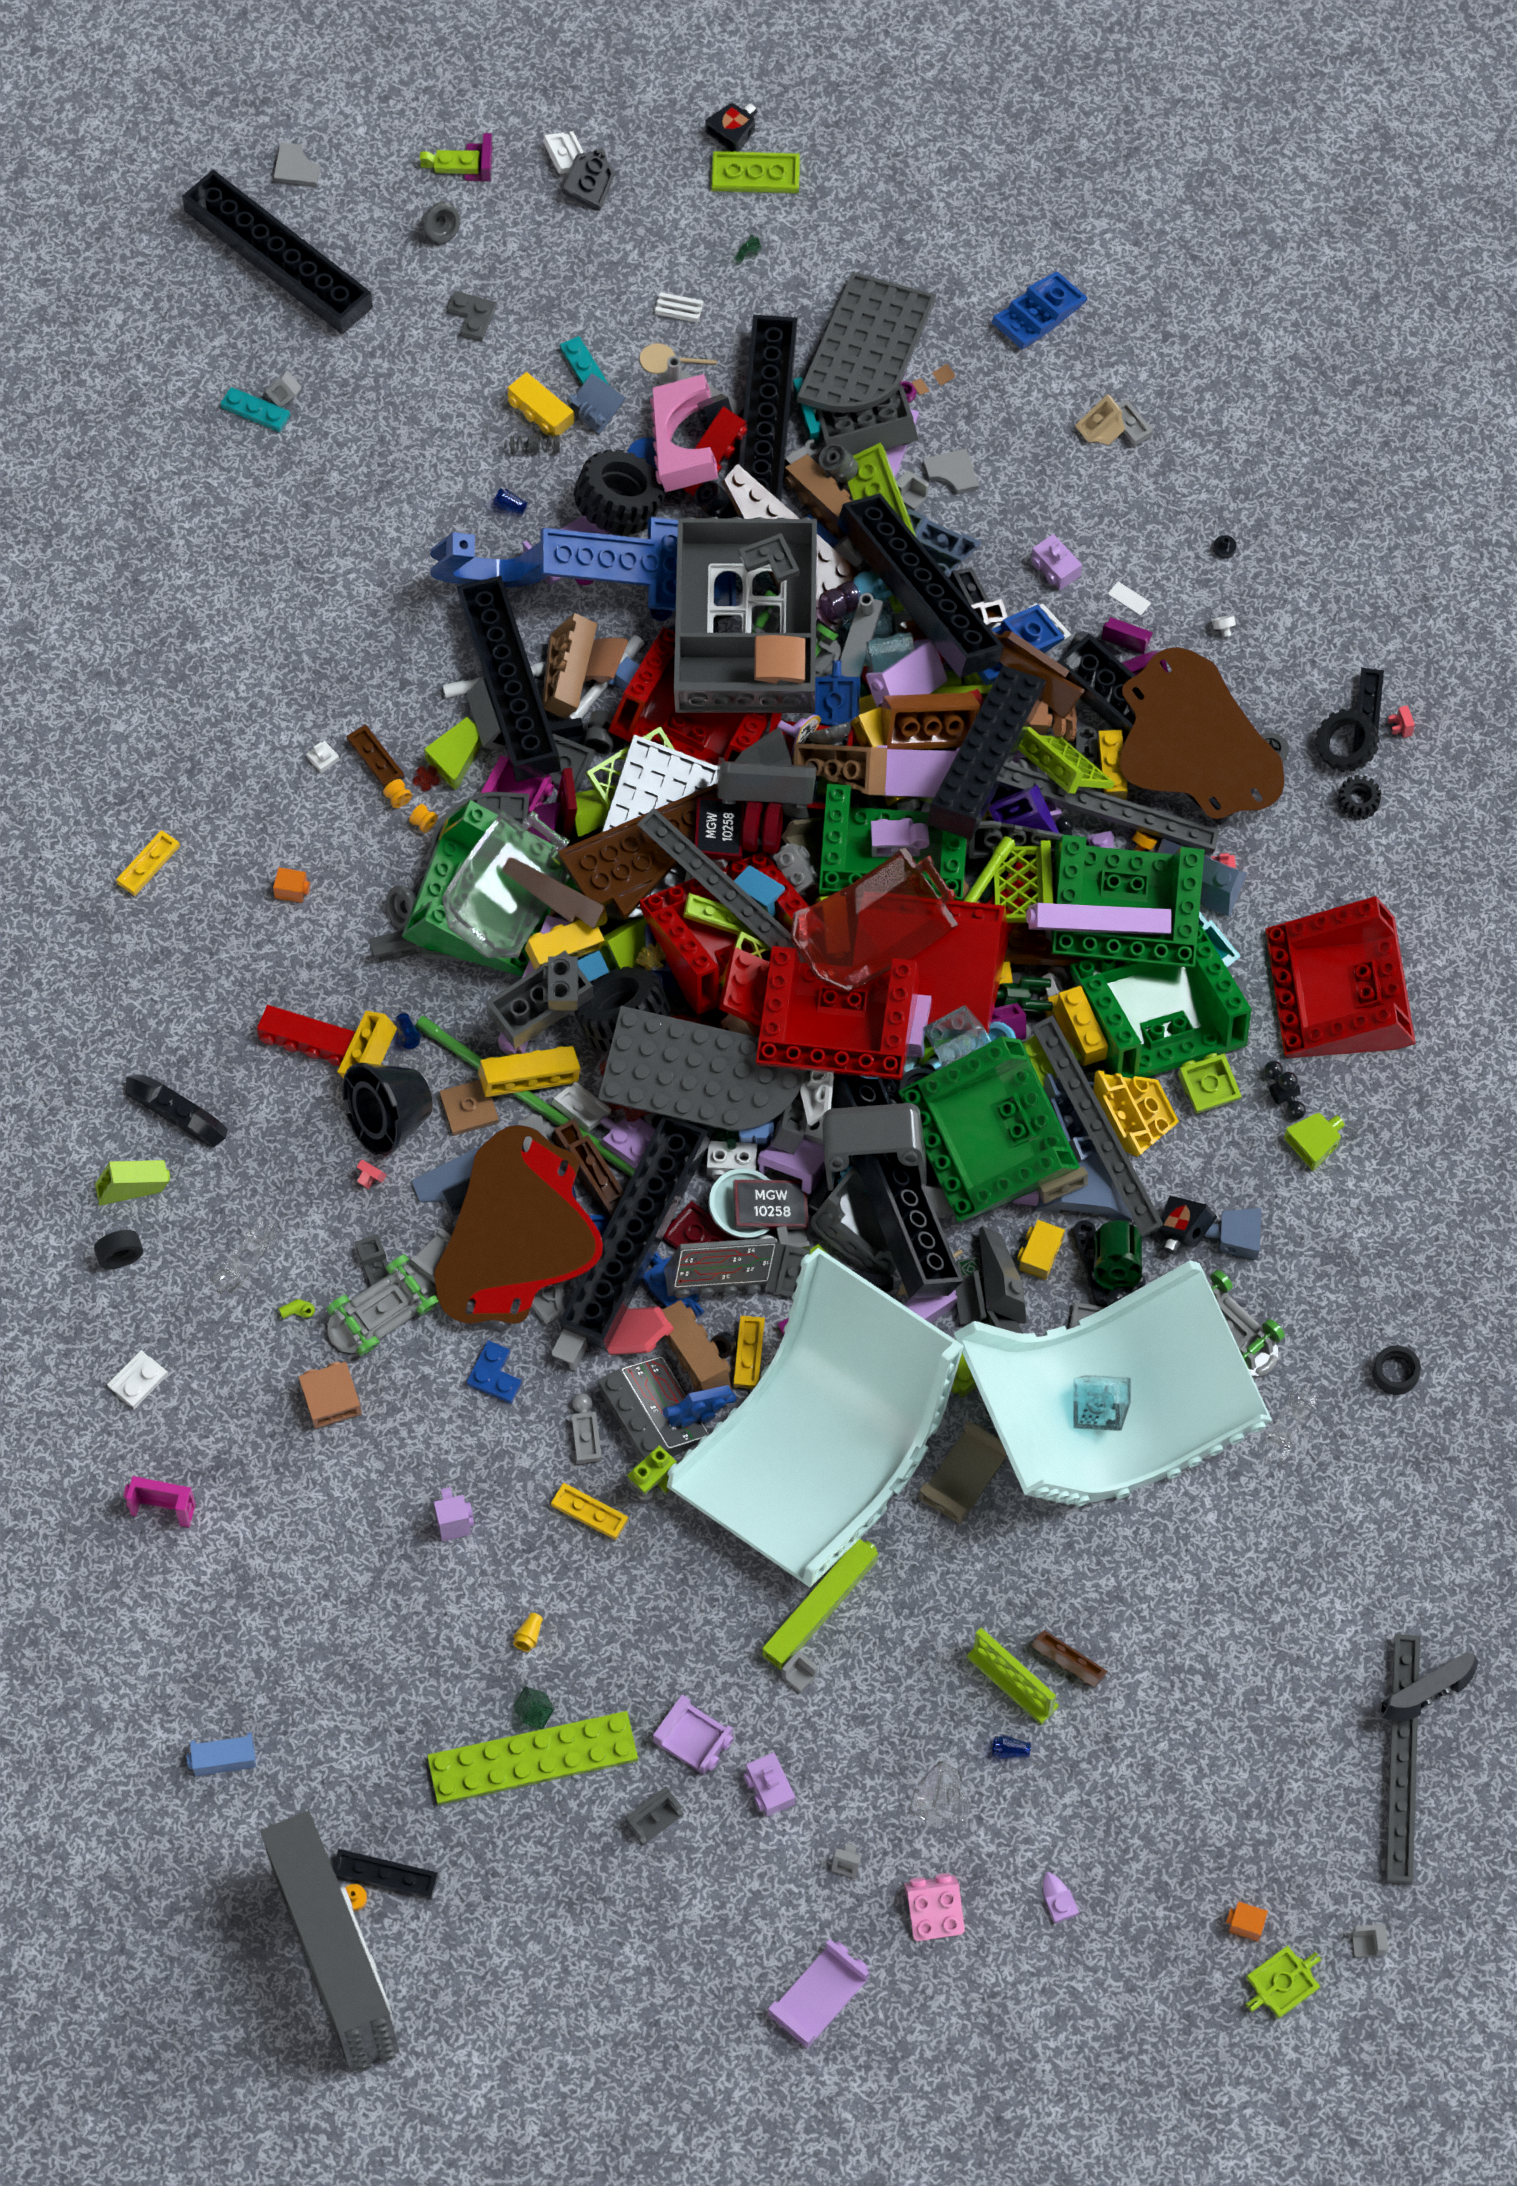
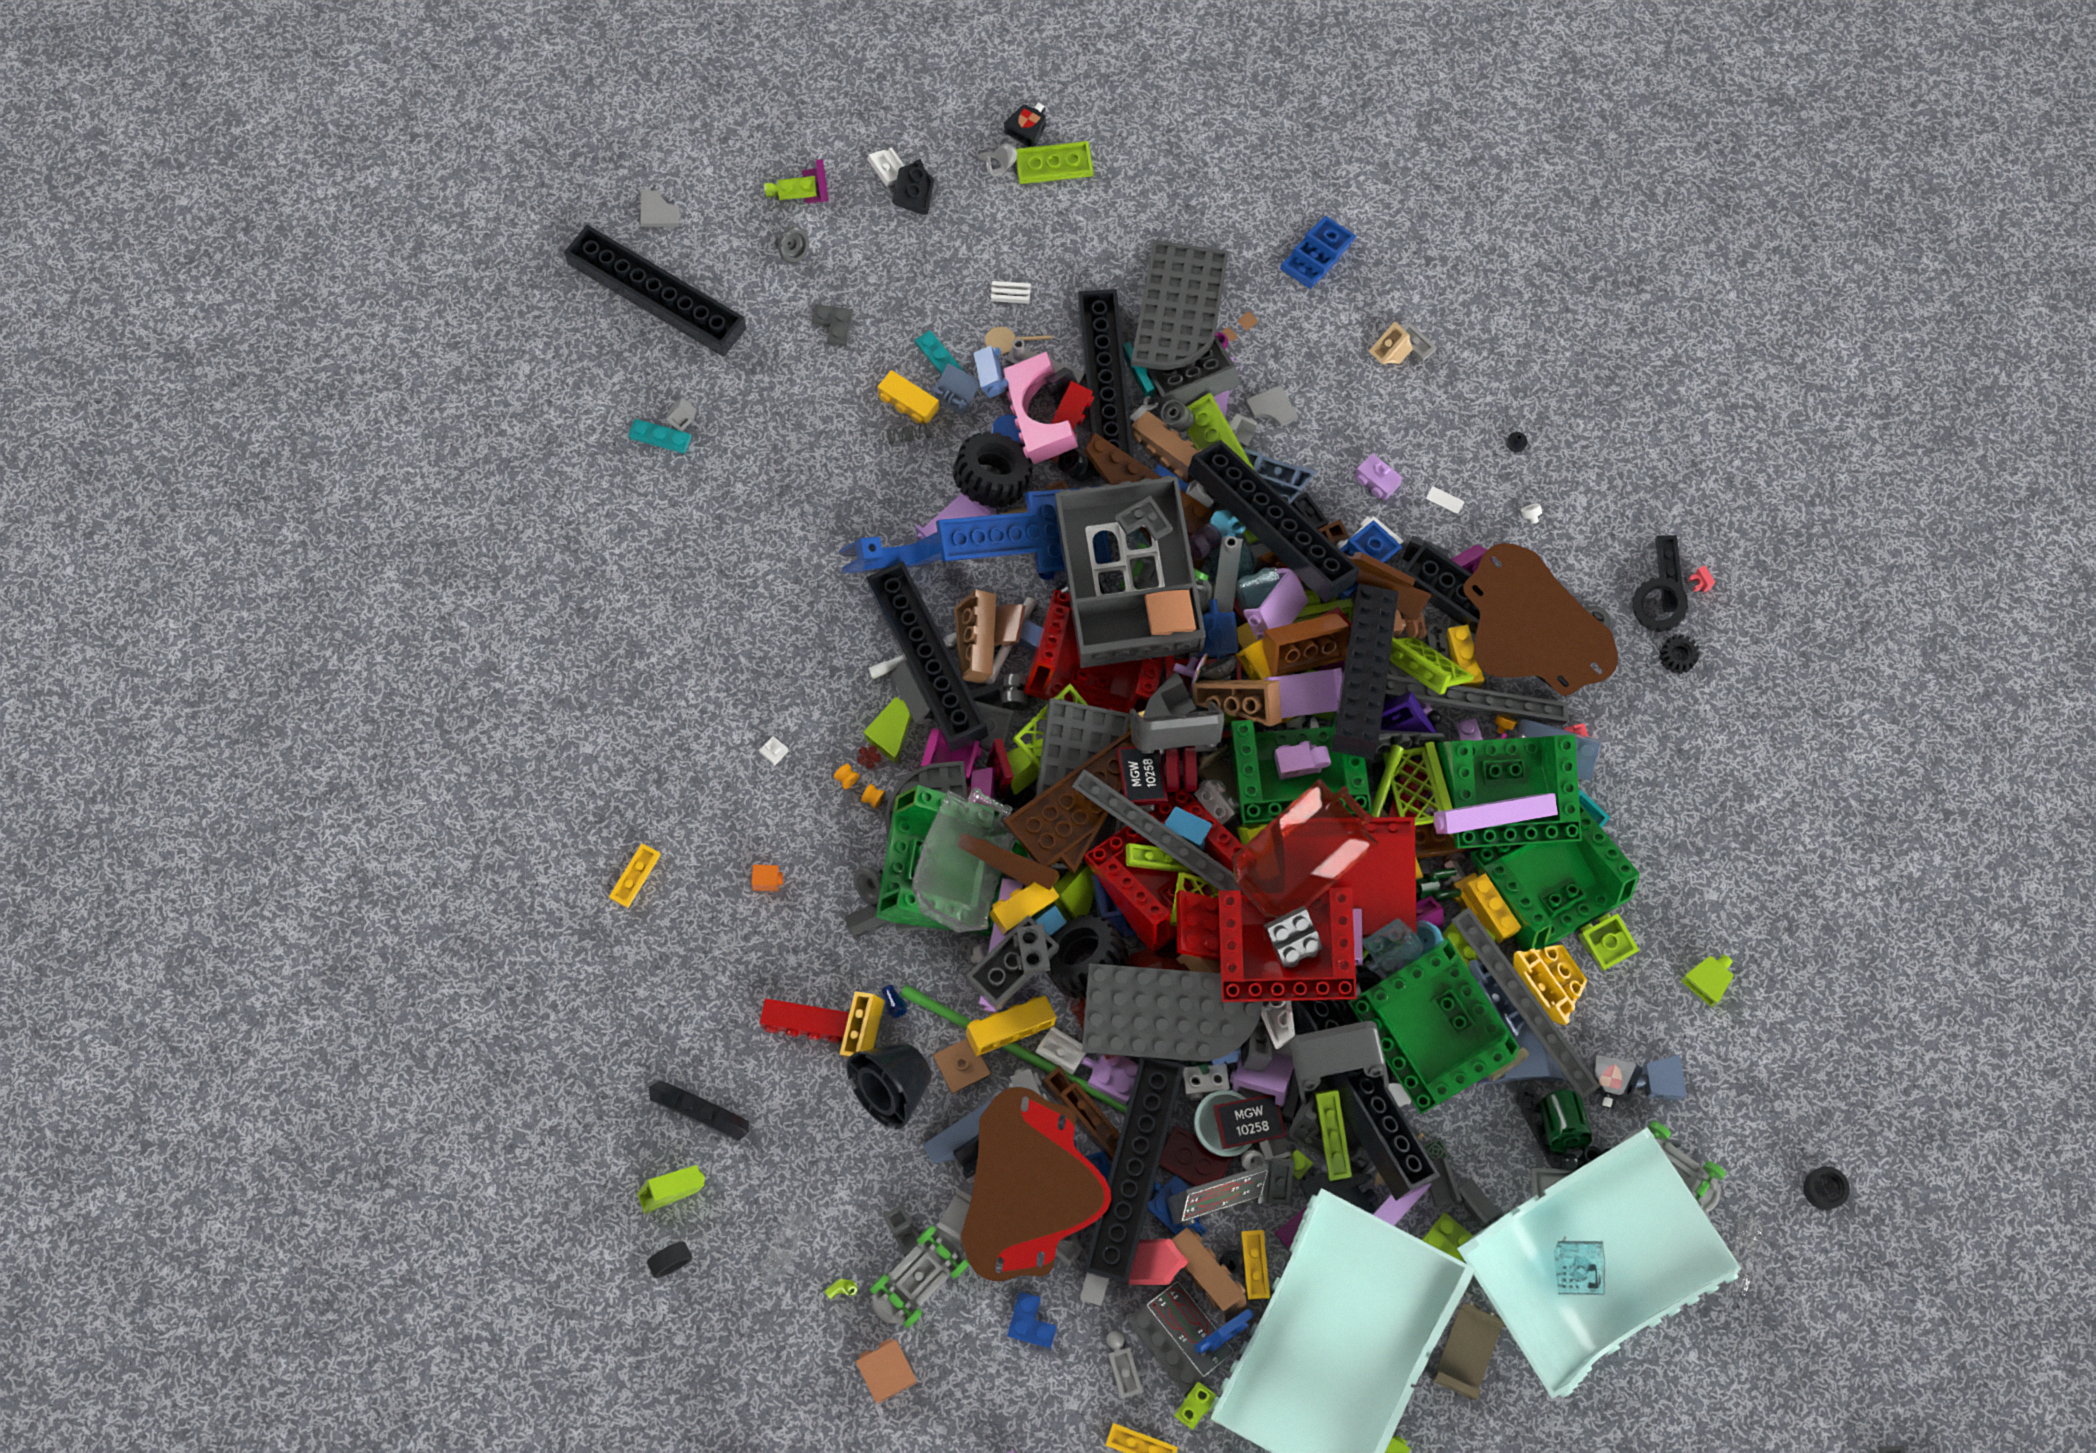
camera: 10 degrees left, 5 degrees up
(137, 1379) = (707, 1382): white plate -> none
(369, 1174) = (884, 1145): coral tile -> none
(374, 756) = (820, 744): reddish brown plate -> none
(509, 501) = (896, 489): clear blue cone -> none
(638, 388) = (990, 371): none -> brick
(651, 957) = (1103, 905): clear yellow piece -> none
(701, 155) = (1005, 154): none -> light grey piece
(752, 245) = (1063, 228): clear green plate -> none
(846, 1007) = (1293, 937): none -> plate
(856, 1224) = (1333, 1134): none -> lime plate
(1001, 1279) = (1467, 1160): dark grey wedge -> none
(1041, 1249) = (1493, 1123): yellow brick -> none
(1126, 635) = (1451, 534): magenta panel -> none
(1285, 1089) = (1674, 936): black piece -> none
(1340, 982) = (1700, 829): red slope -> none

